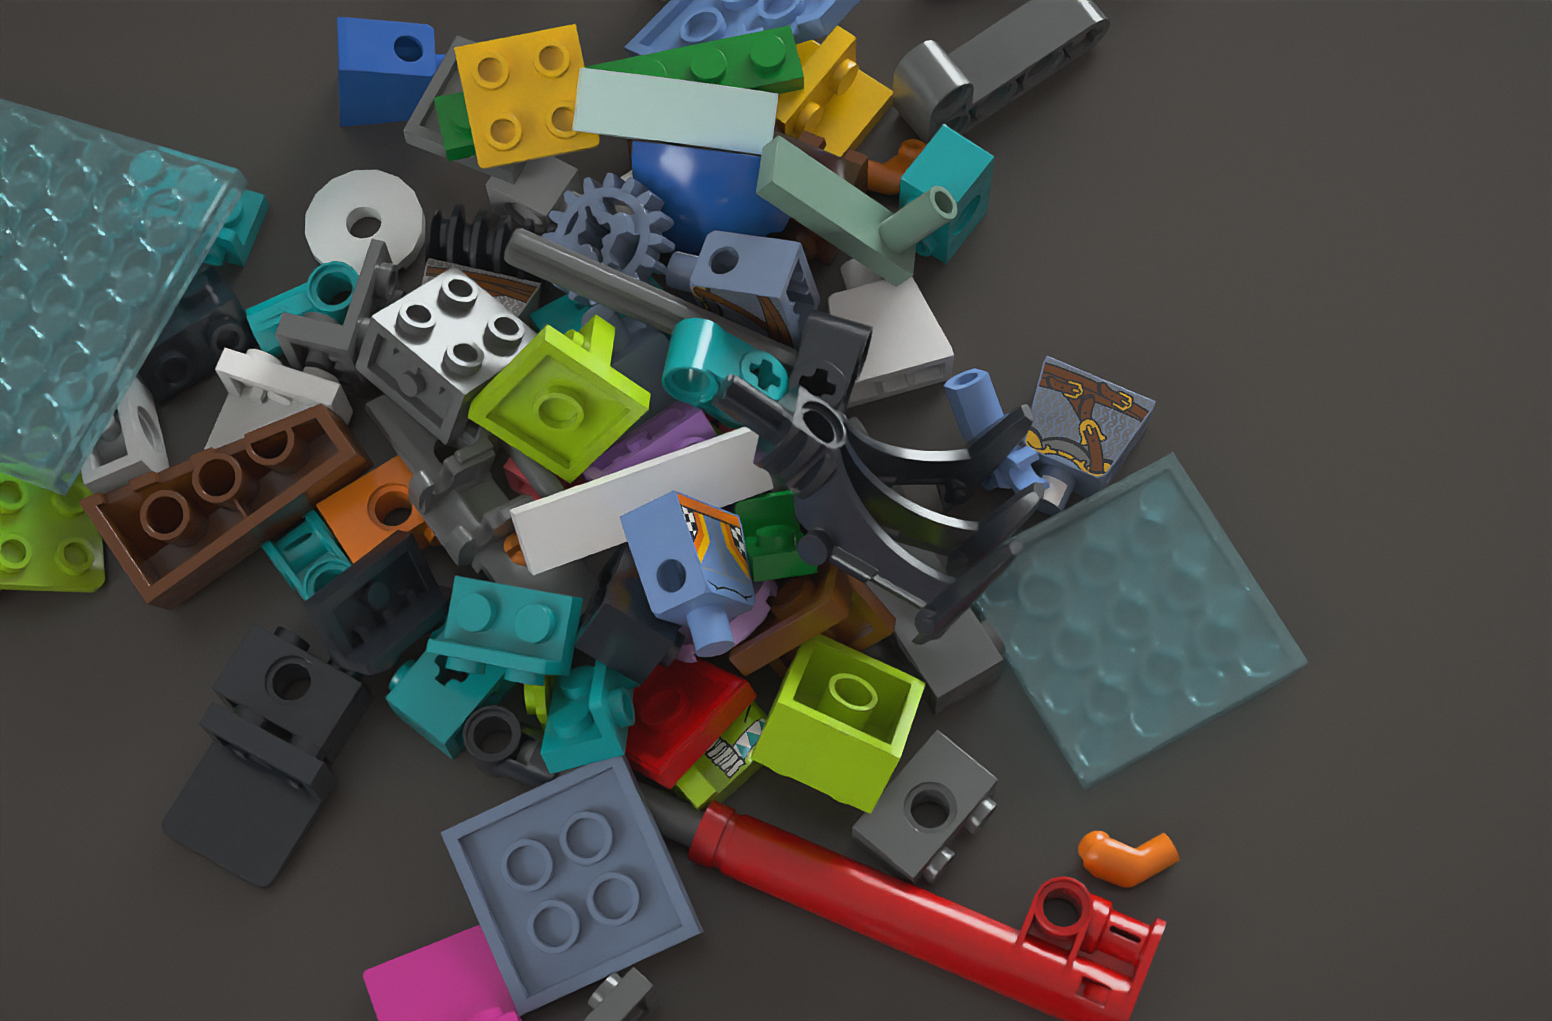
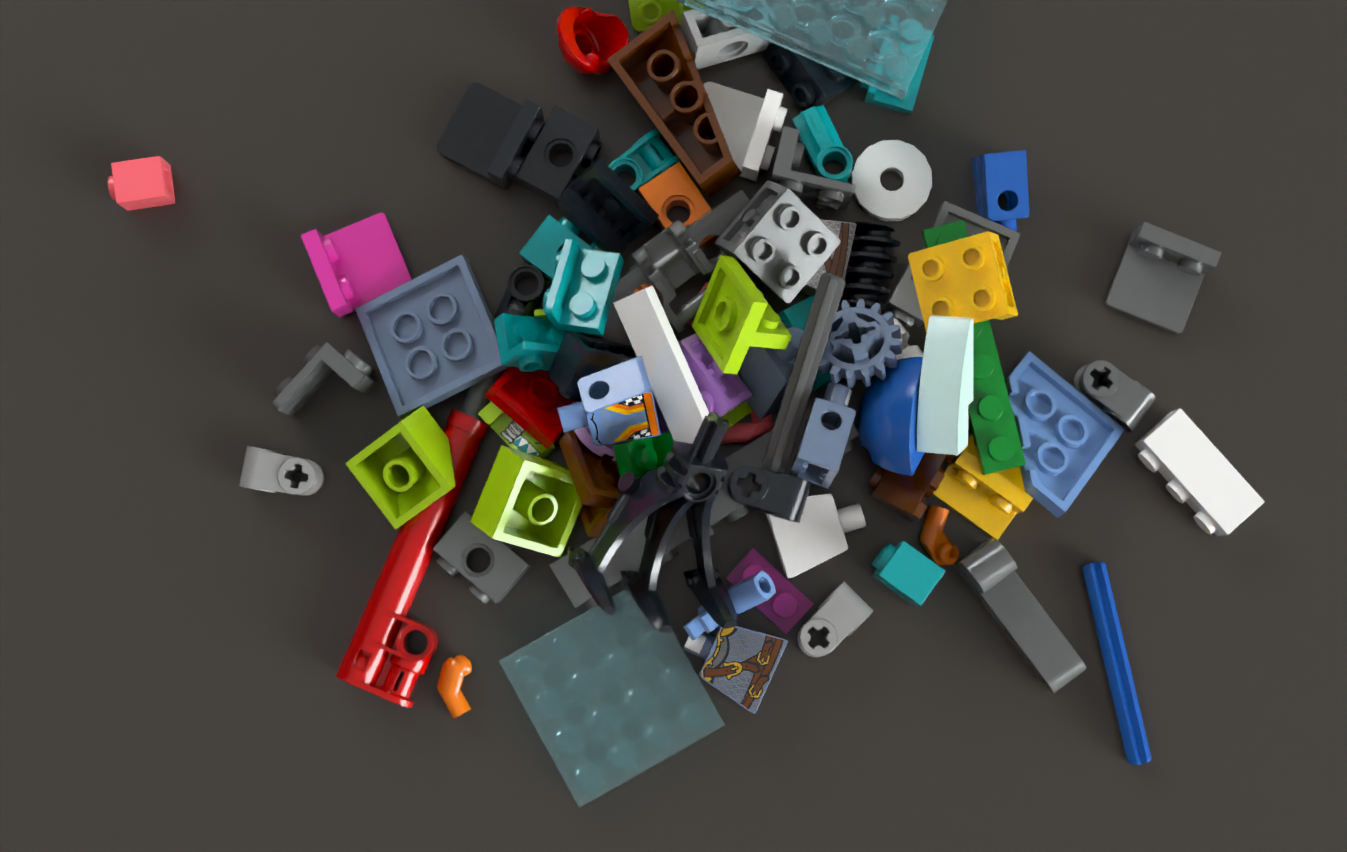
camera: 90 degrees right, 15 degrees up
(113, 639) = (590, 39): none -> red piece
(704, 355) = (758, 421): teal piece -> none
(783, 918) = (406, 467): none -> lime slope
(847, 215) = (877, 503): sand green piece -> none
(934, 417) = (786, 605): none -> magenta plate
(1010, 299) = (838, 617): none -> light grey piece

